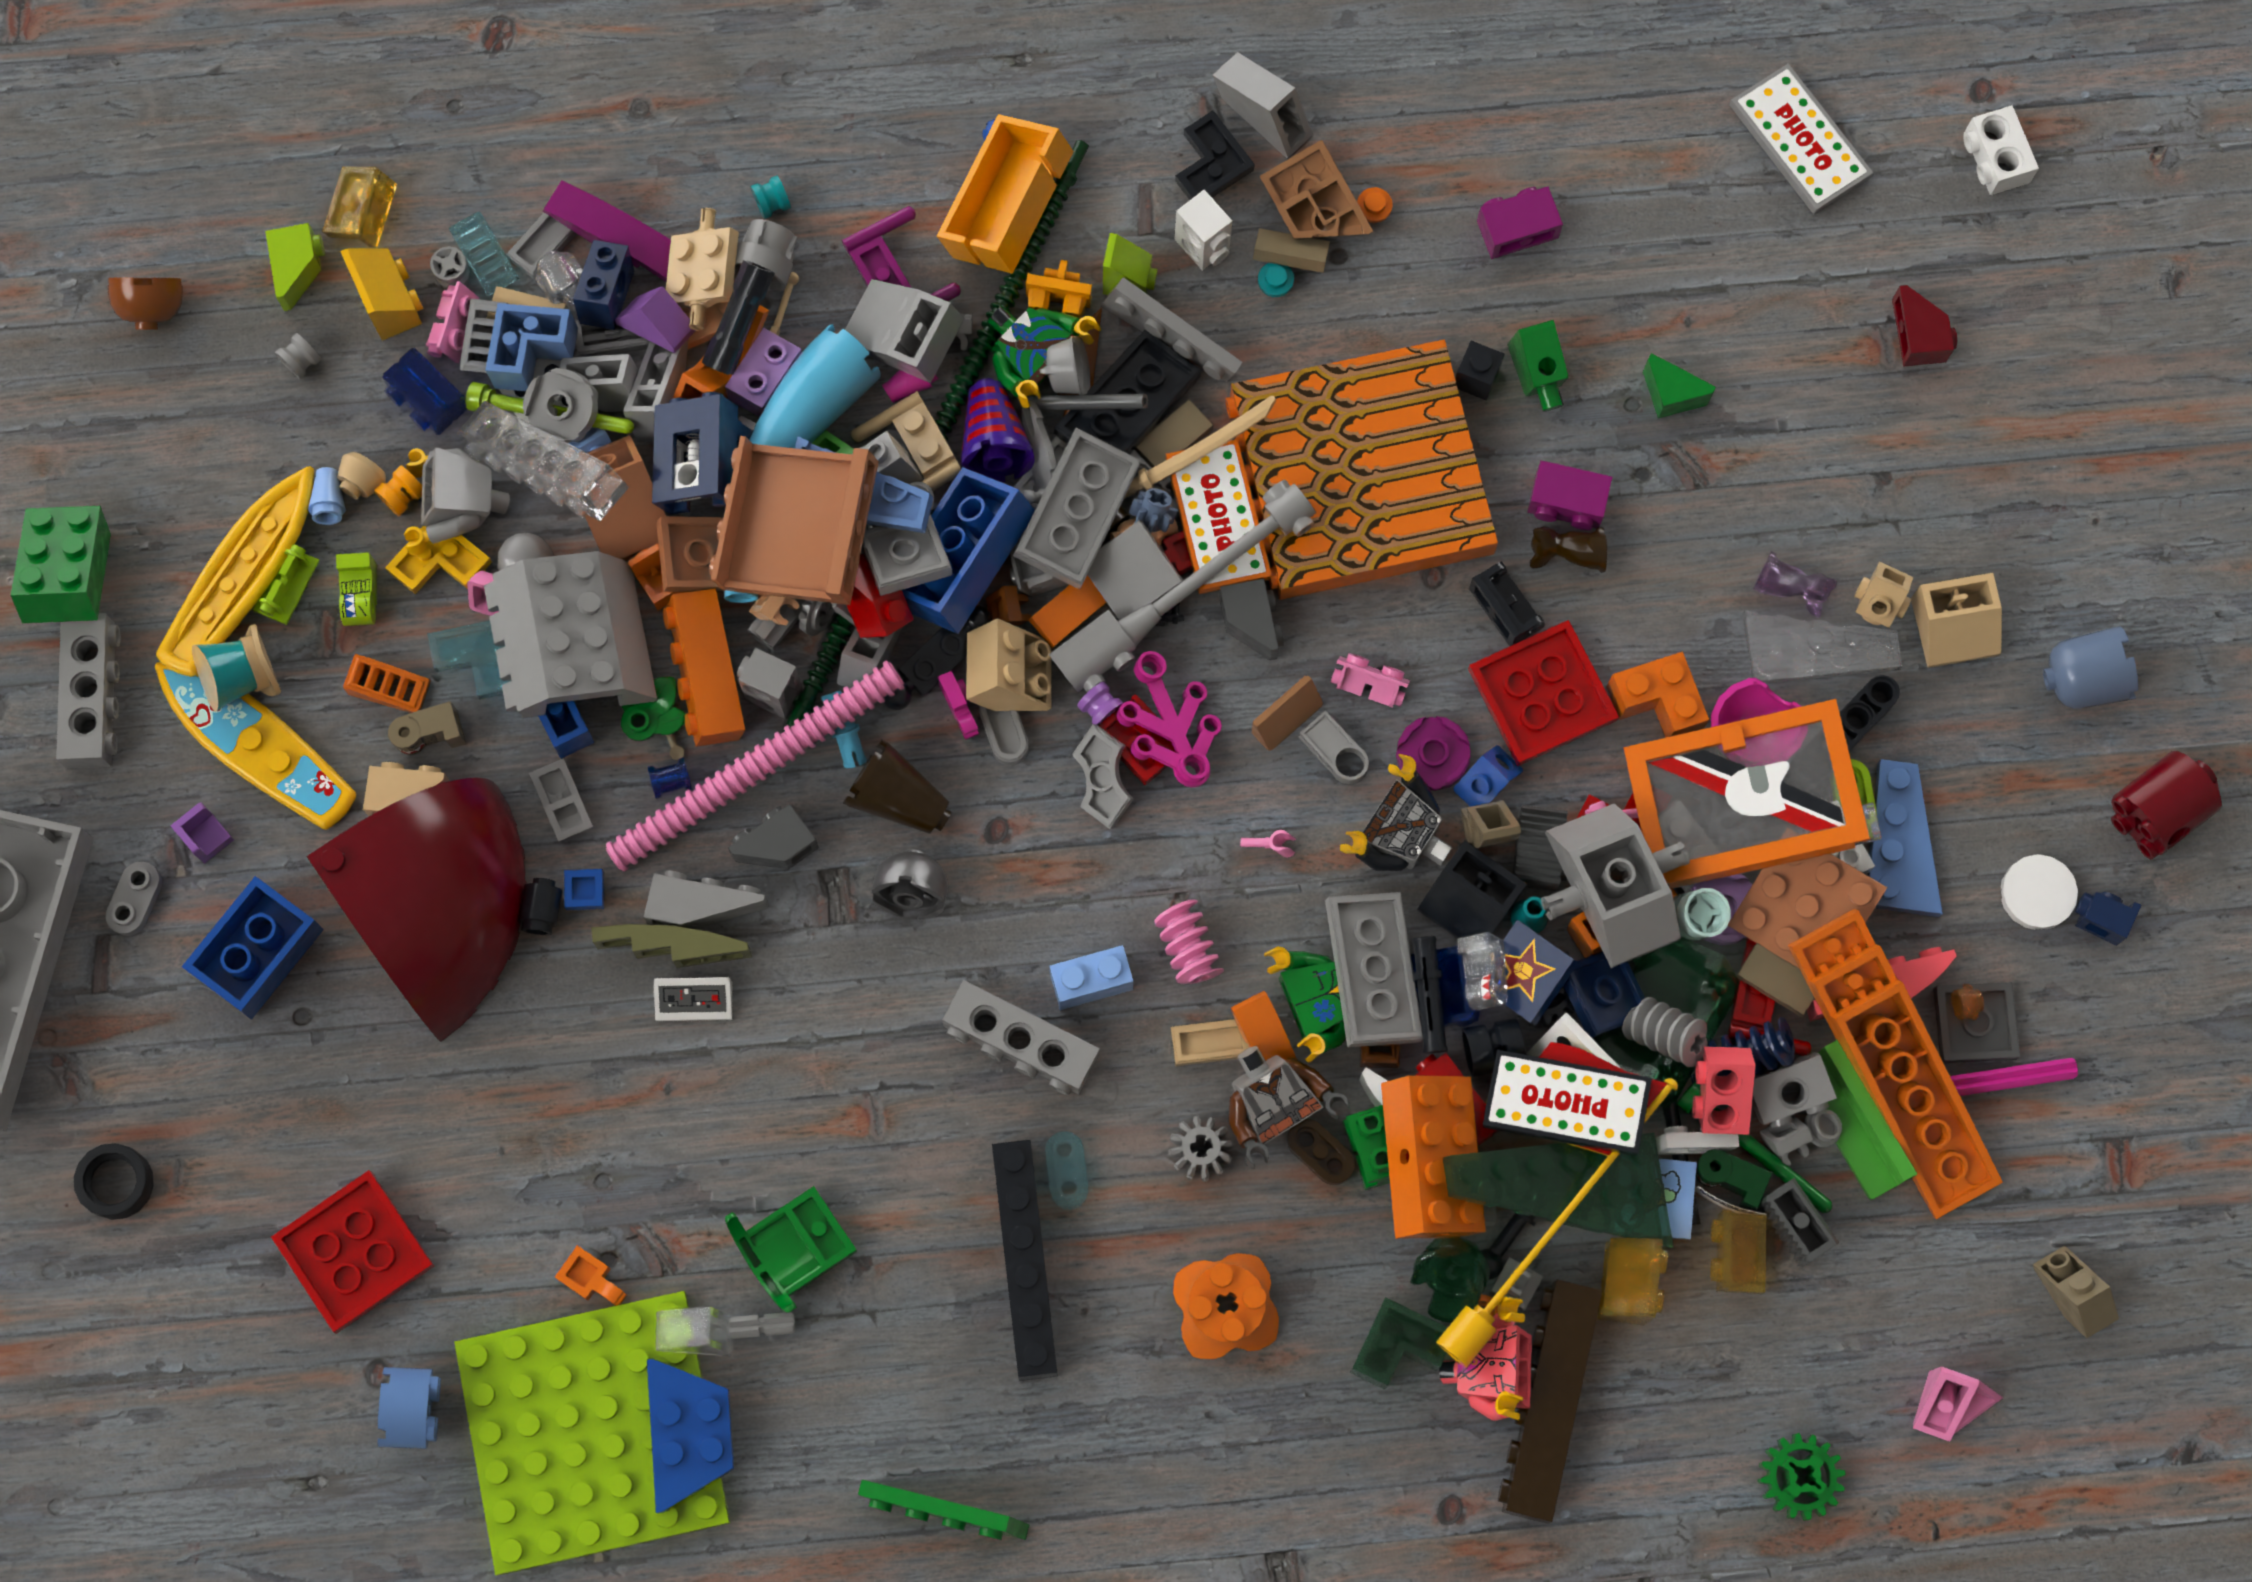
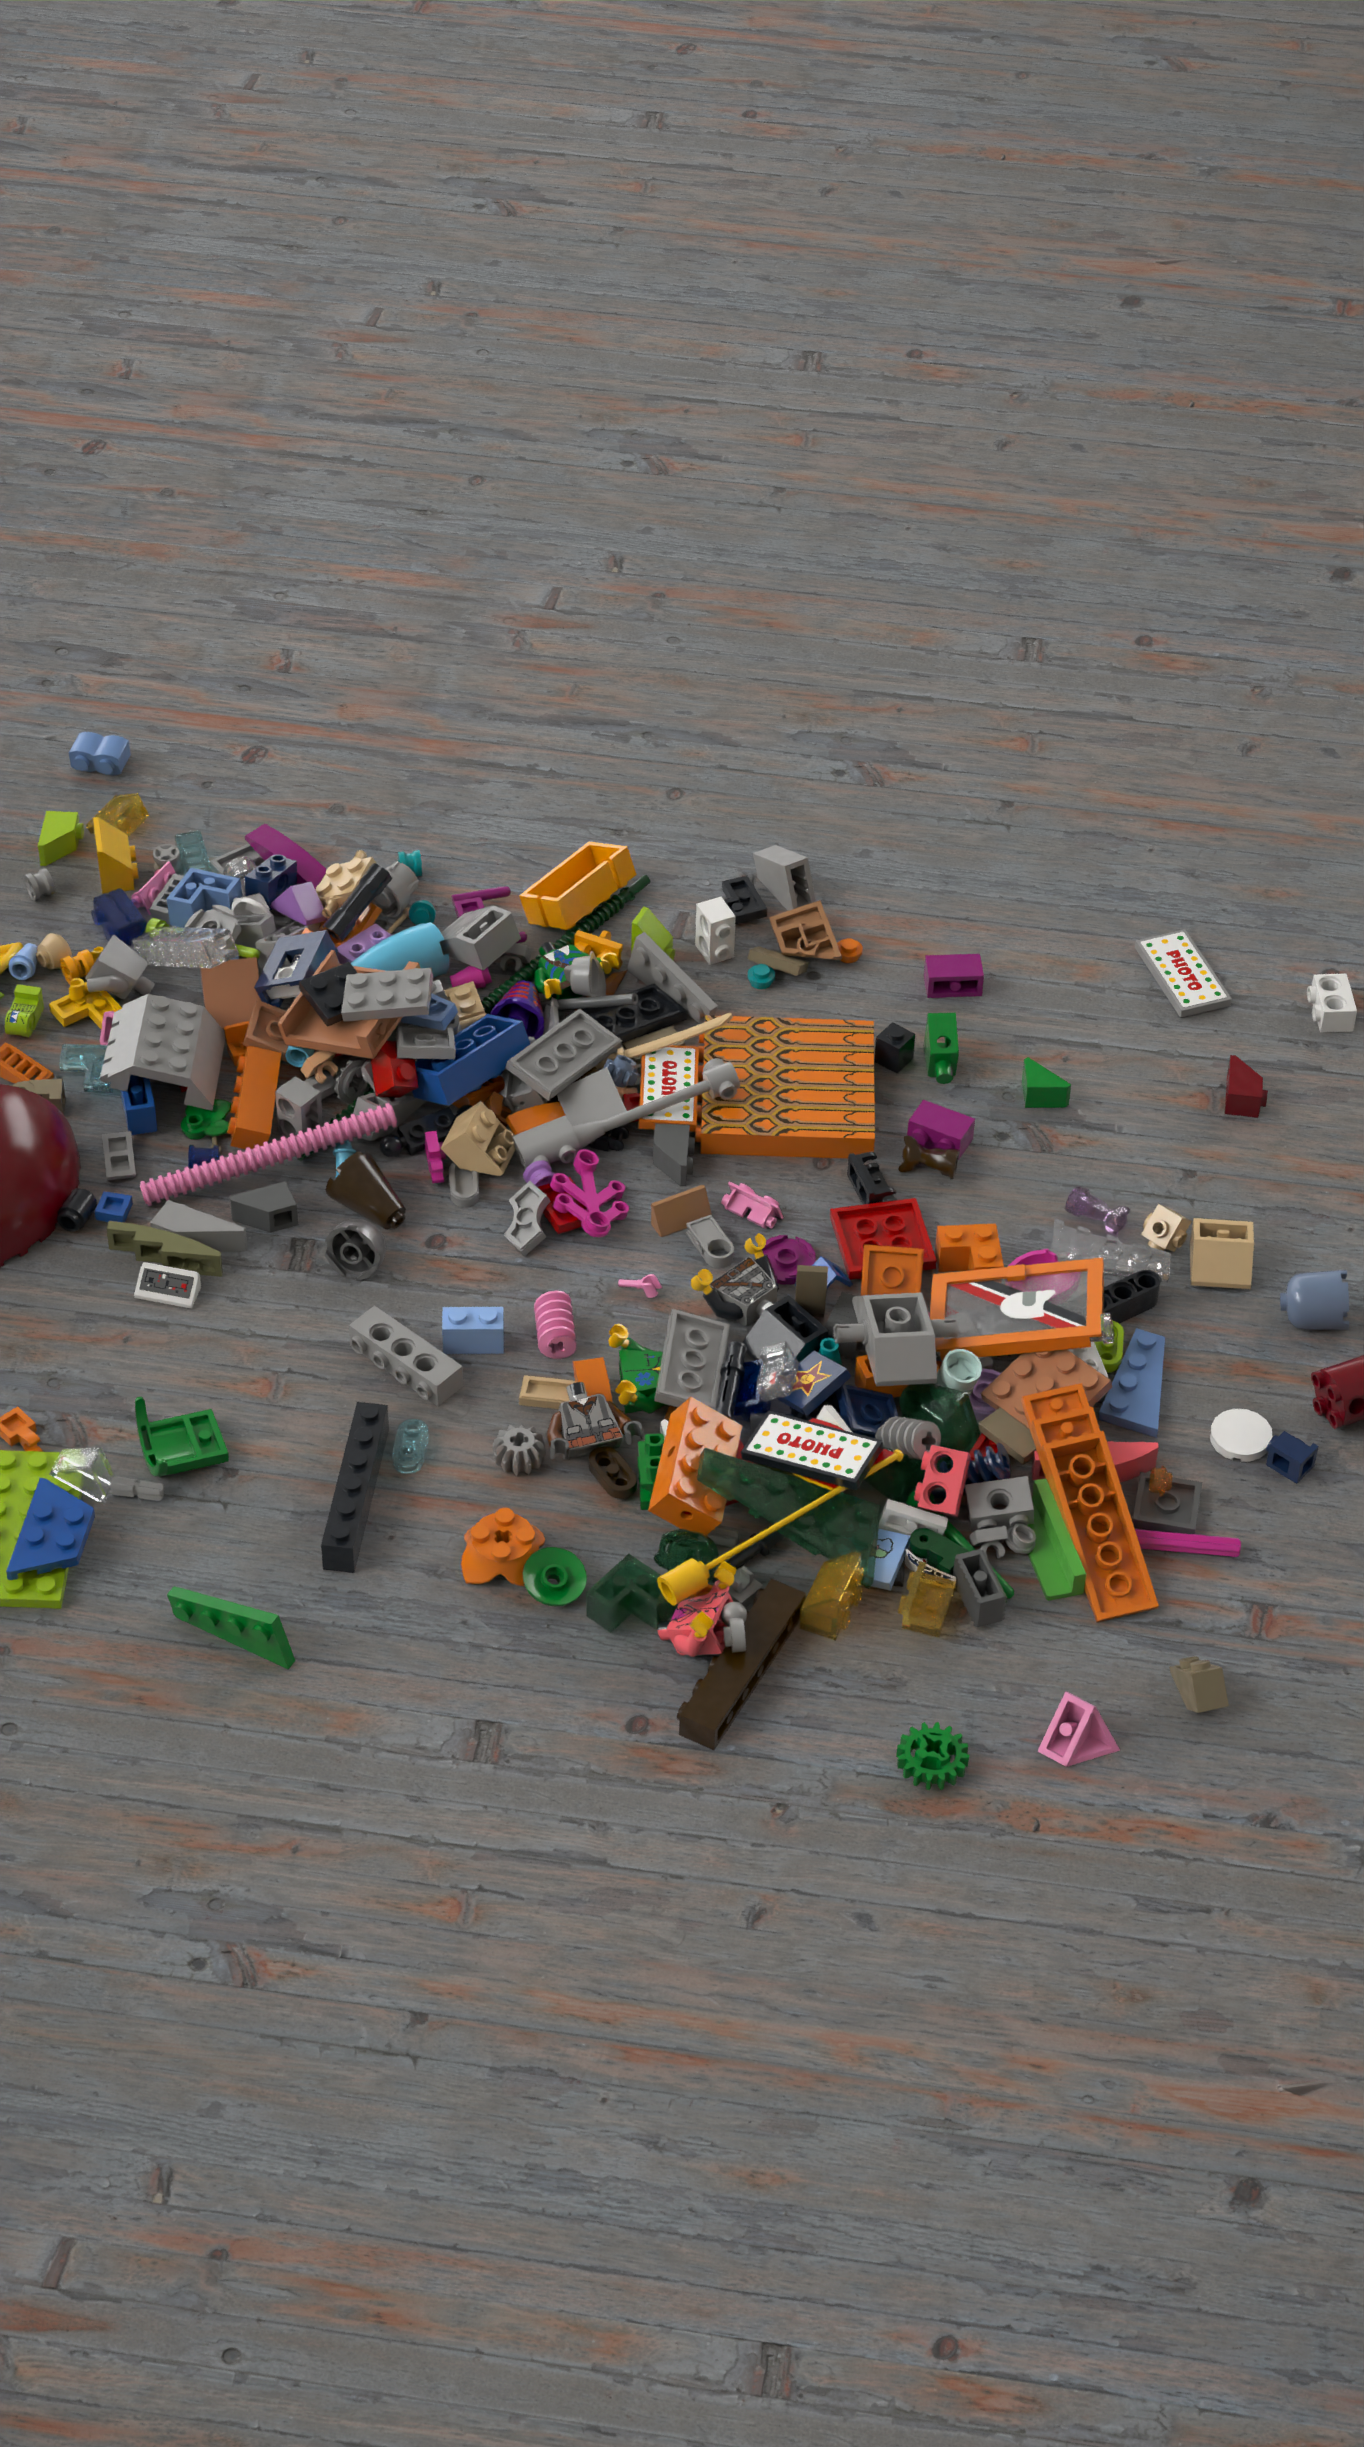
camera: 15 degrees right, 30 degrees down
(295, 94) = (99, 753): none -> medium blue brick
(596, 339) = (250, 905): none -> white piece
(773, 512) = (326, 992): none -> black plate
(813, 280) = (422, 912): none -> teal plate
(846, 518) = (387, 994): none -> light grey plate
(1317, 1338) = (558, 1565): none -> green dish
(1543, 1390) = (734, 1616): none -> light grey plate
(1572, 759) = (891, 1270): none -> orange plate

